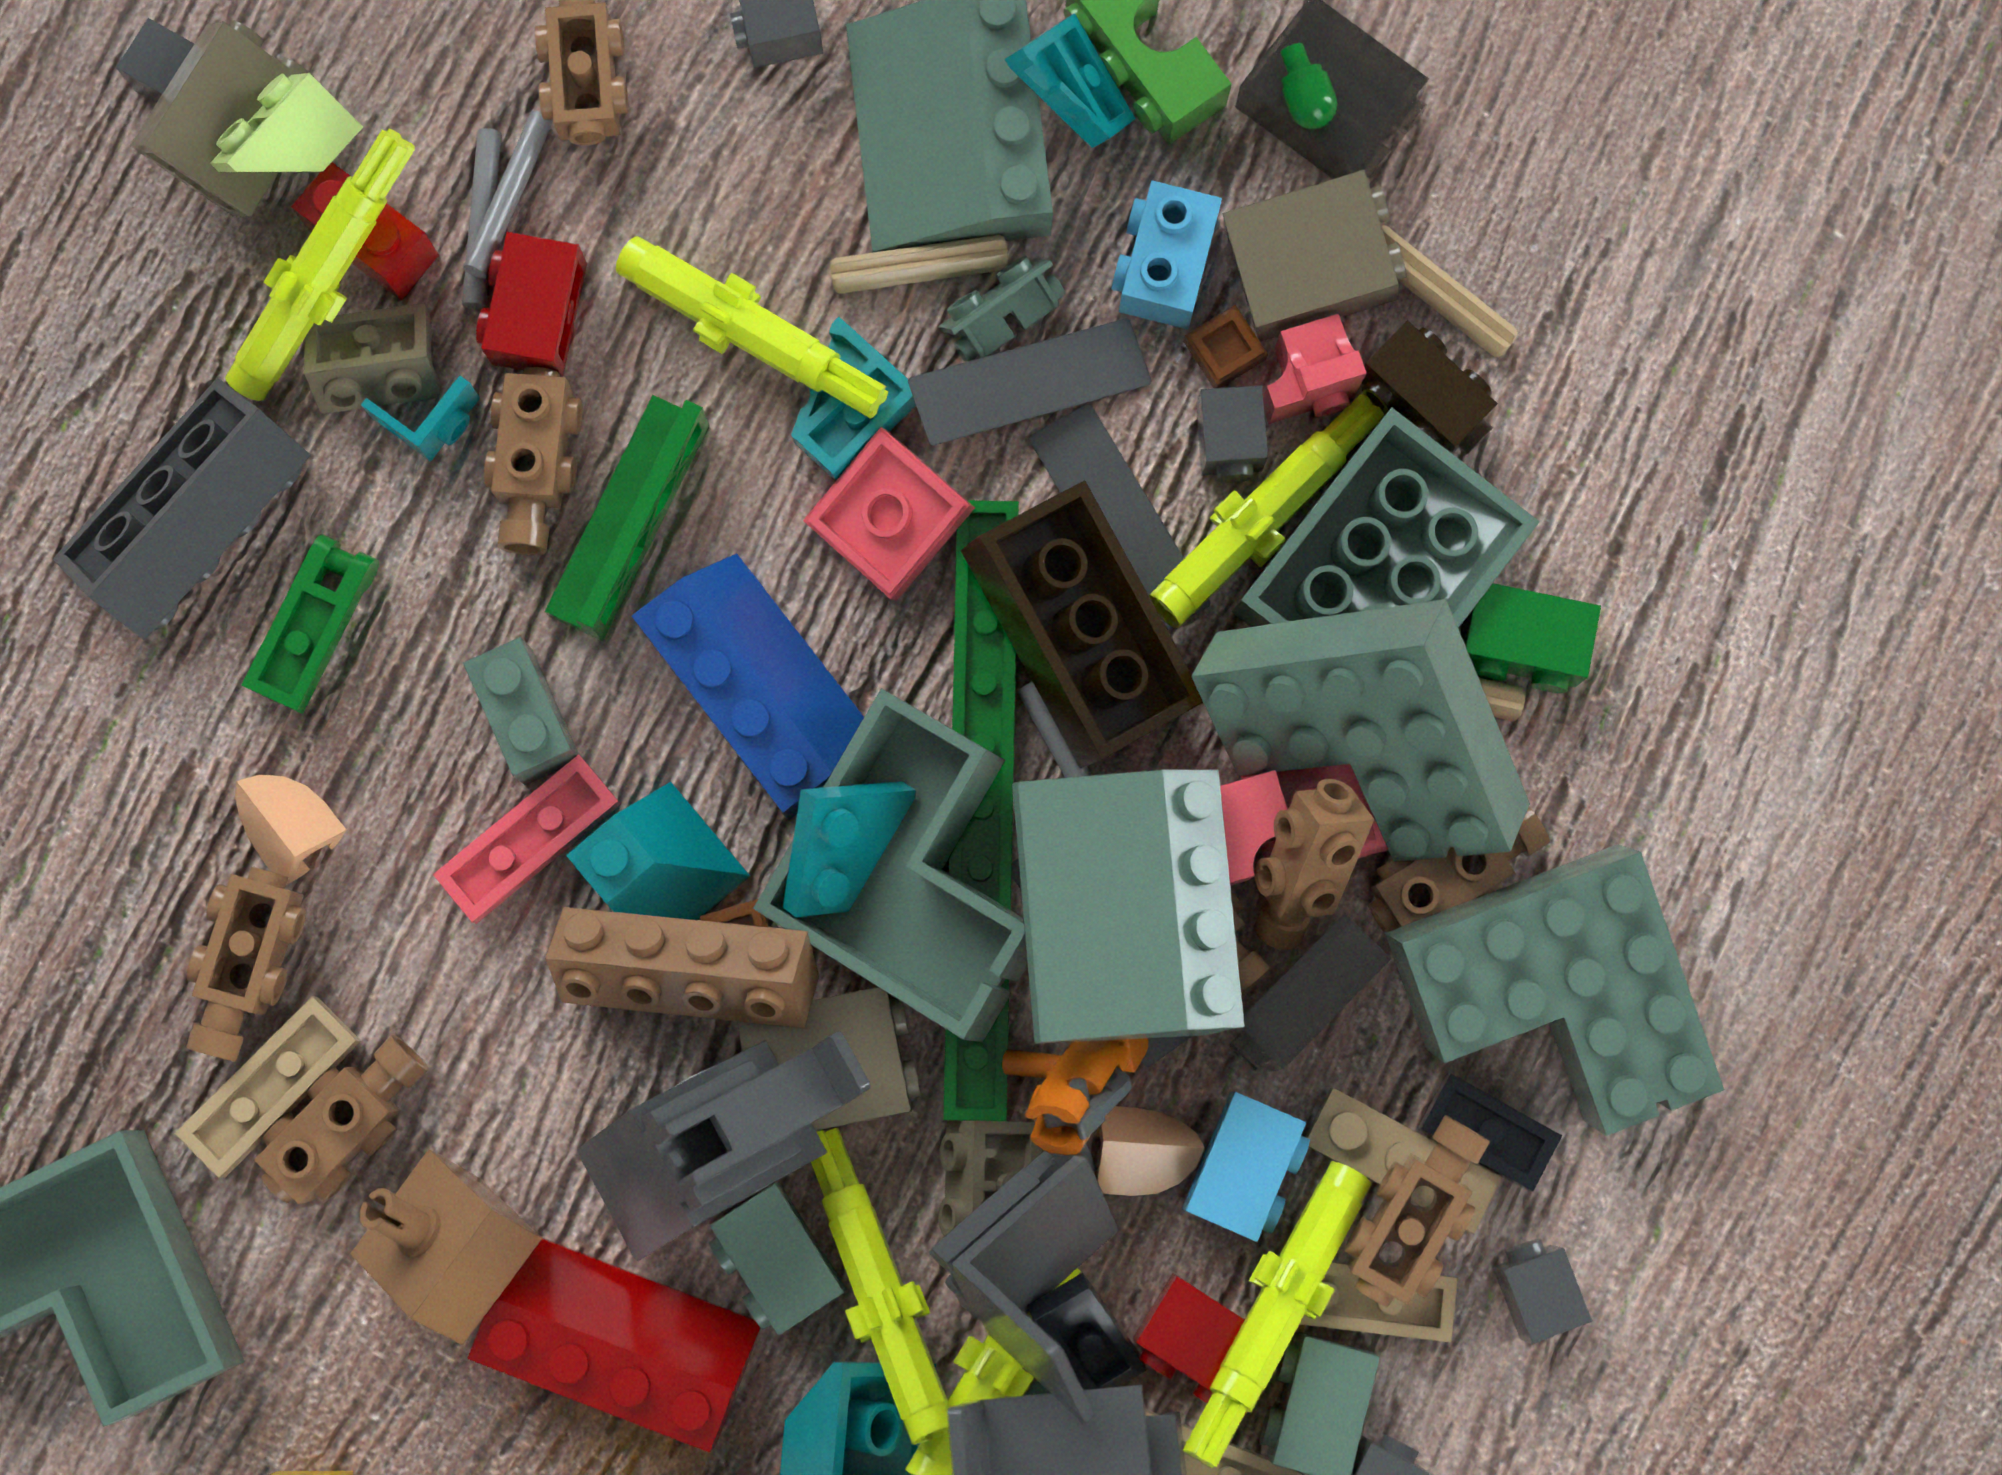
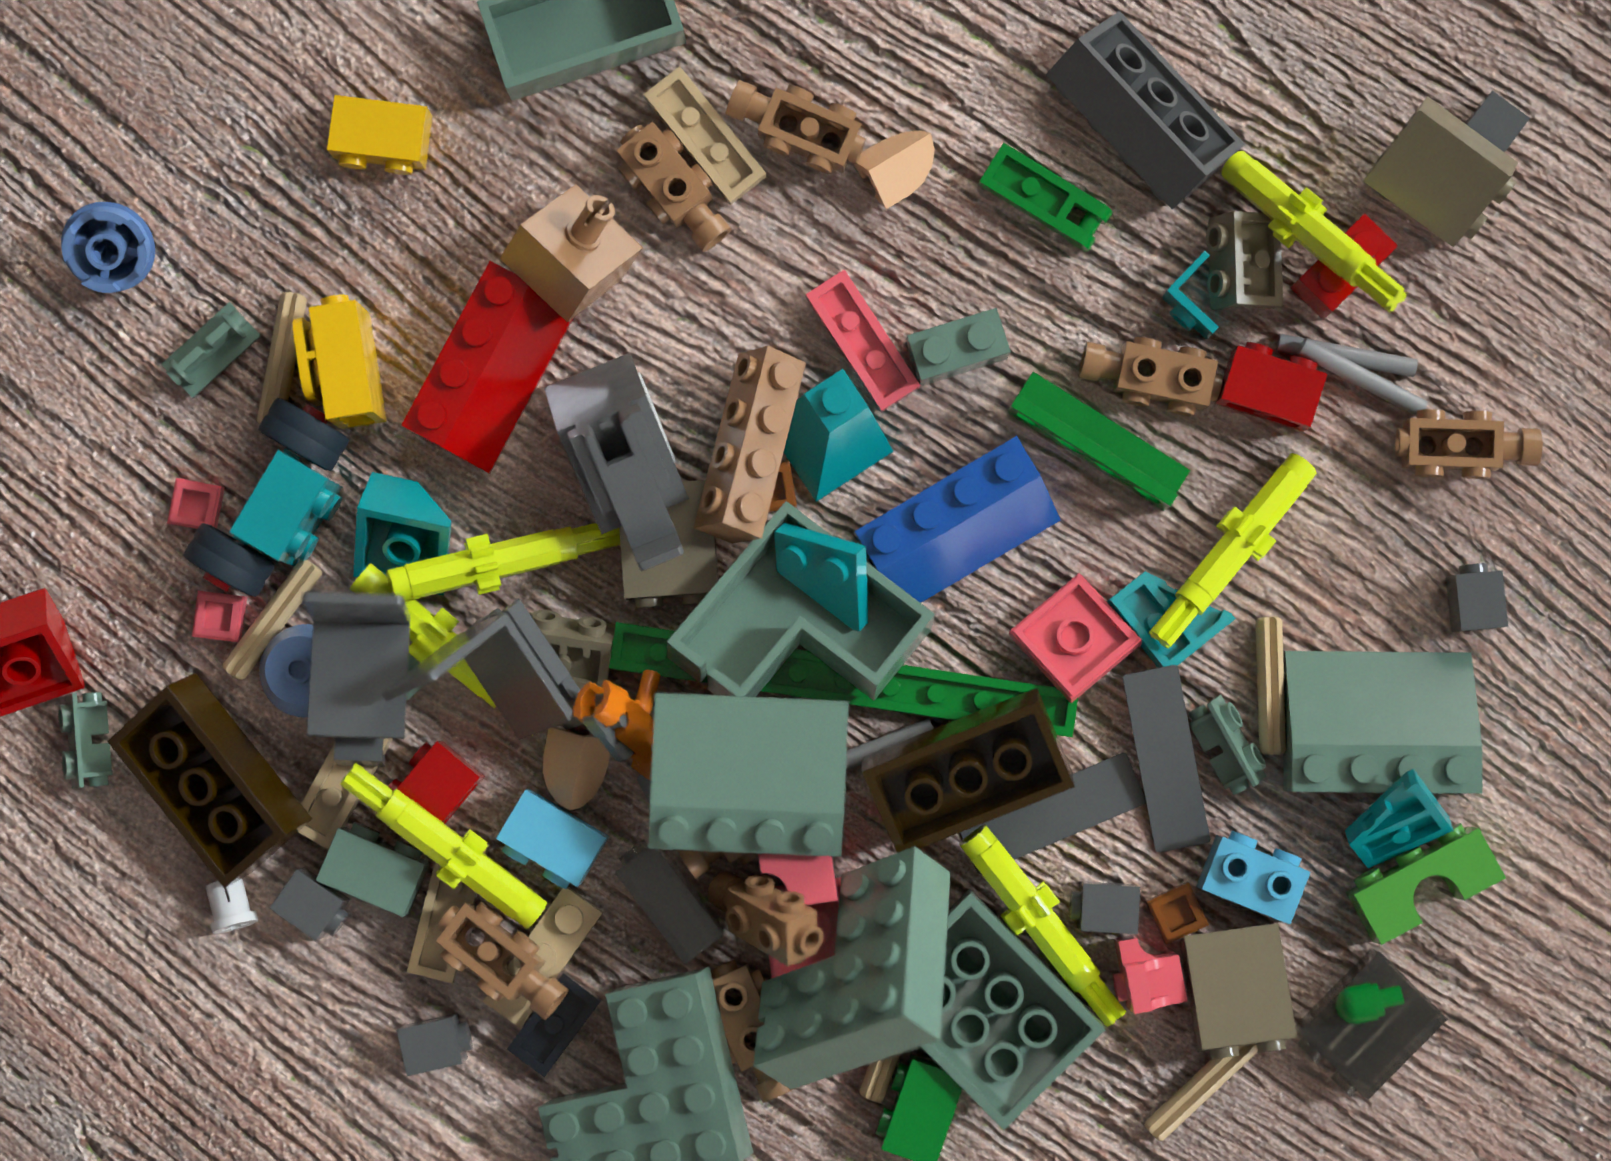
camera: 105 degrees right, 5 degrees up
(292, 132) = (1420, 217): yellowish green slope -> none
(775, 1259) = (530, 489): sand green brick -> none
(1087, 1334) = (446, 706): black plate -> none
(1429, 389) = (1118, 1063): dark brown brick -> none

